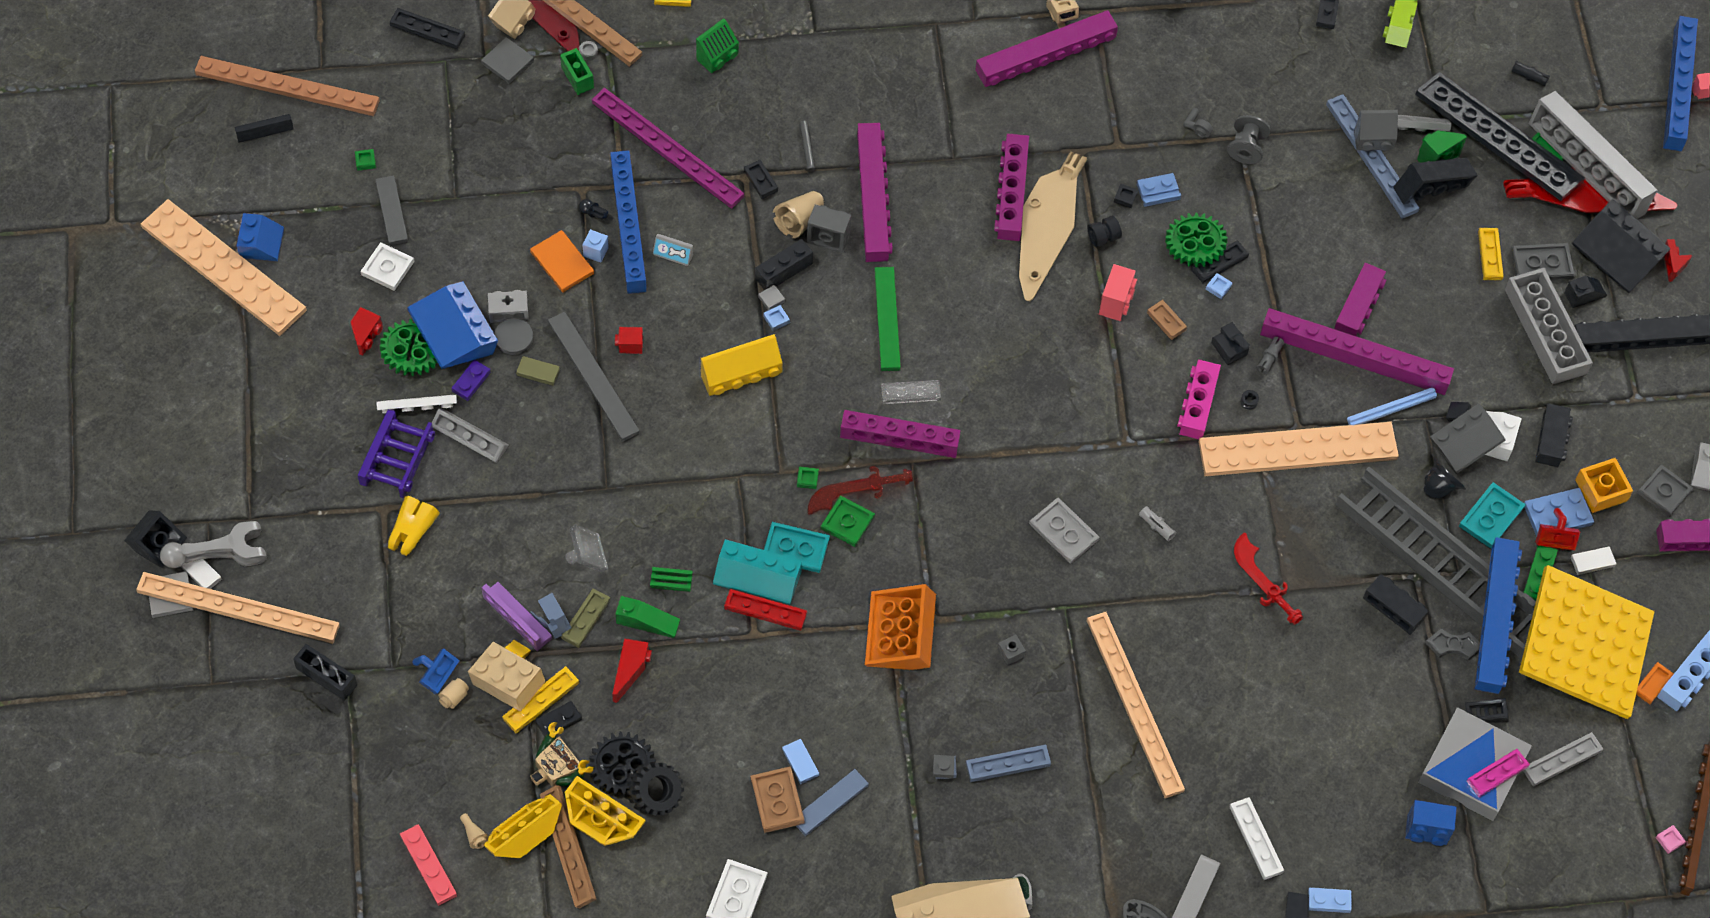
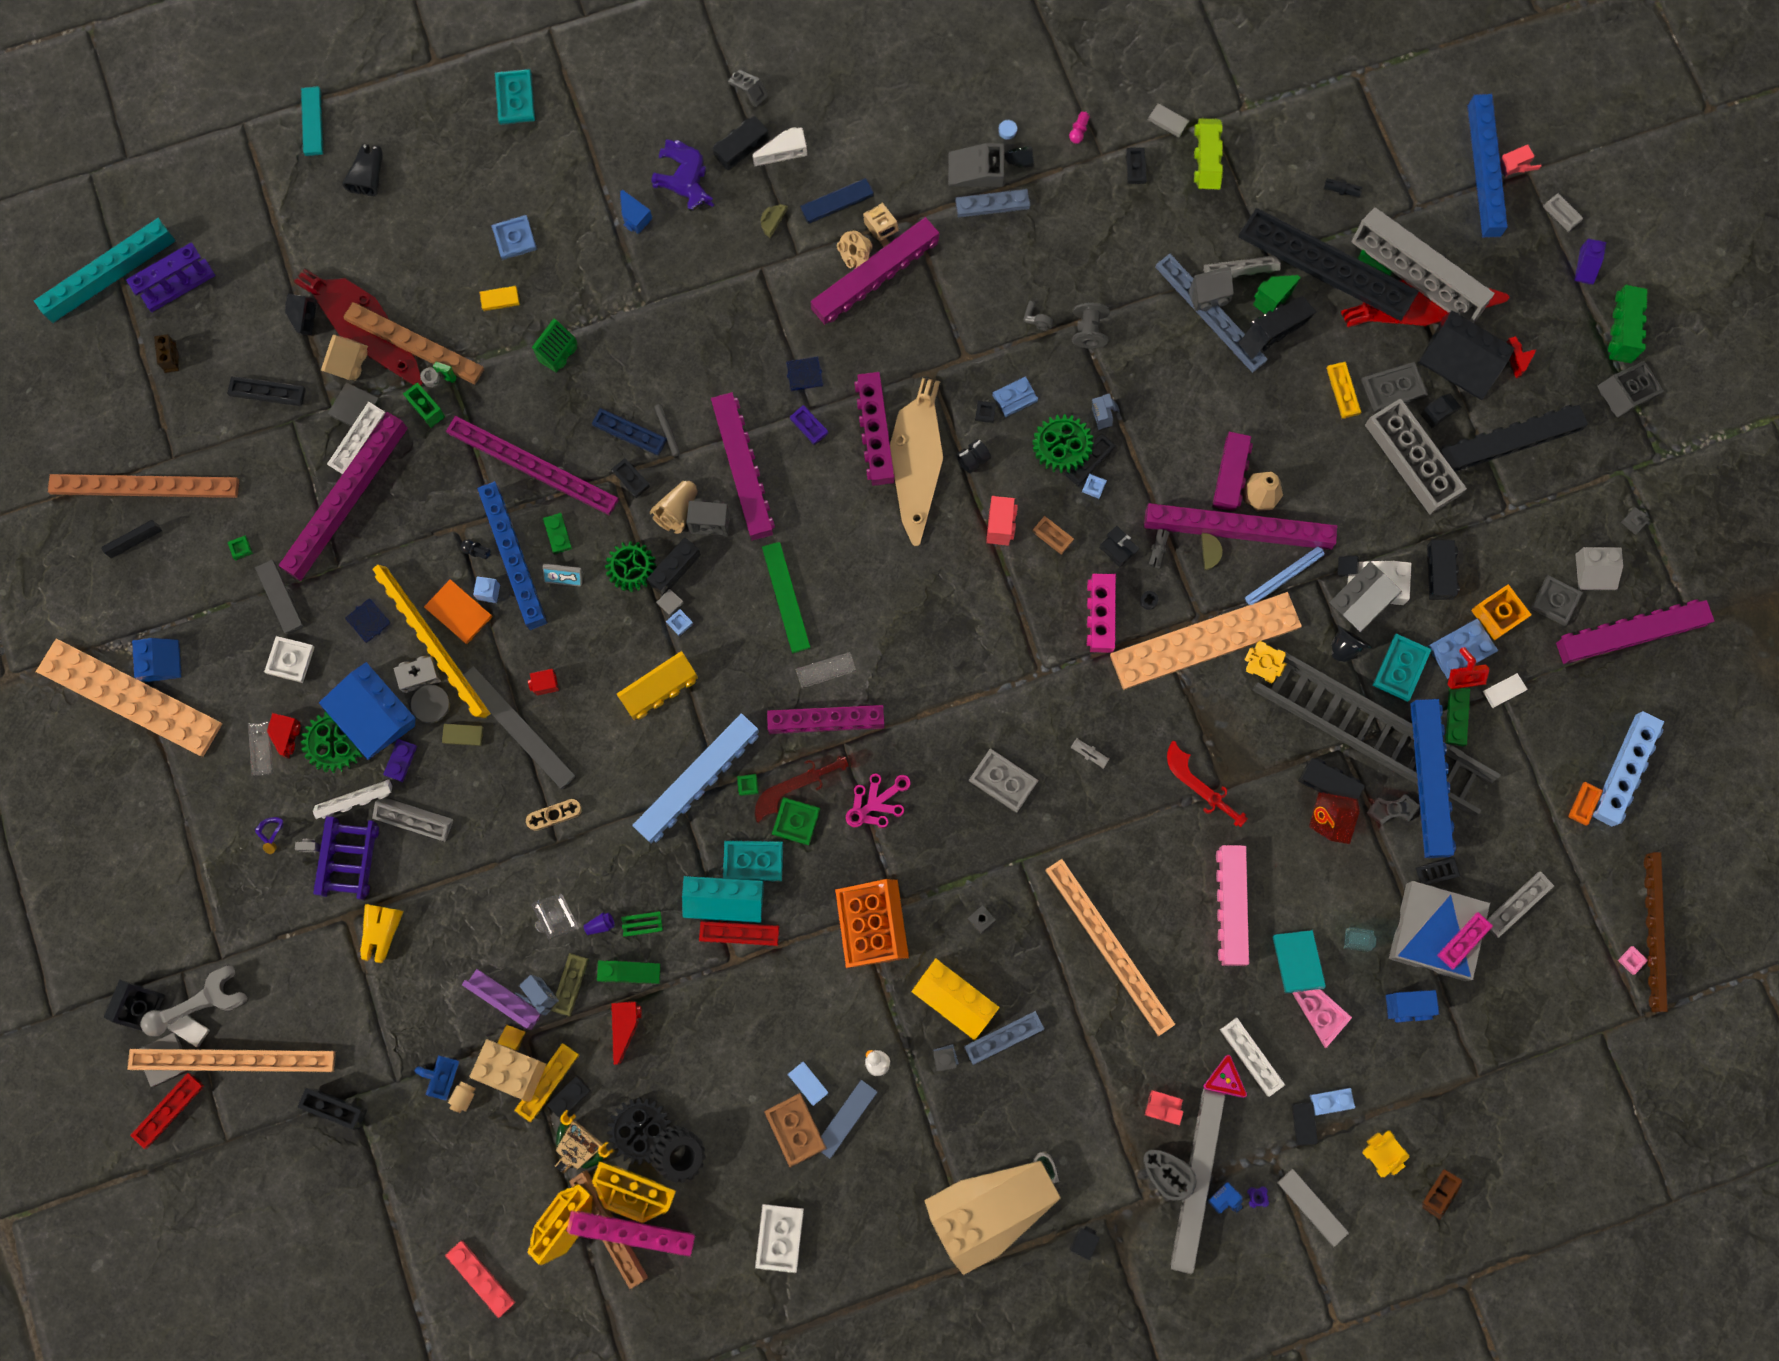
camera: 10 degrees left, 15 degrees up
(162, 640) = (167, 1111): none -> red plate
(324, 427) = (269, 847): none -> dark purple piece
(338, 340) = (260, 749): none -> clear plate
(361, 435) = (307, 845): none -> light grey plate
(471, 250) = (367, 620): none -> clear blue piece
(475, 835) = (517, 1238): tan cone -> none
(477, 134) = (343, 496): none -> magenta brick
(504, 84) = (356, 437): none -> white fence
(531, 285) = (434, 646): none -> yellow plate
(591, 847) = (630, 1233): none -> dark pink brick
(605, 46) = (445, 370): none -> green tile
(623, 454) = (538, 814): none -> tan beam
(630, 568) = (599, 924): none -> dark purple cone
(676, 213) = (557, 533): none -> green plate
(739, 249) = (616, 561): none -> green gear
(758, 459) = (696, 779): none -> light blue brick
(769, 139) = (629, 432): none -> dark blue tile
(874, 754) = (877, 1062): none -> white animal
(931, 521) = (875, 803): none -> dark pink plant
(948, 170) = (808, 425): none -> dark purple plate
(954, 125) = (804, 373): none -> clear blue piece
(968, 715) = (955, 999): none -> yellow slope
(1031, 23) = (854, 248): none -> tan plate
(1155, 864) = (1164, 1108): none -> coral piece
(1177, 14) = (992, 203): none -> sand blue plate
(1224, 851) = (1226, 1079): none -> piece
(1242, 219) = (1101, 410): none -> sand blue piece
(1269, 695) = (1233, 905): none -> bright pink brick
(1323, 369) = (1211, 550): none -> olive tile
(1324, 759) = (1299, 961): none -> teal tile
(1336, 811) = (1323, 1014): none -> bright pink wing
(1354, 477) = (1265, 661): none -> yellow piece
(1388, 324) = (1263, 491): none -> tan cone
(1390, 632) = (1335, 817): none -> clear red slope
(1391, 754) = (1359, 939): none -> clear light blue brick
(1587, 642) = (1518, 781): yellow plate -> none

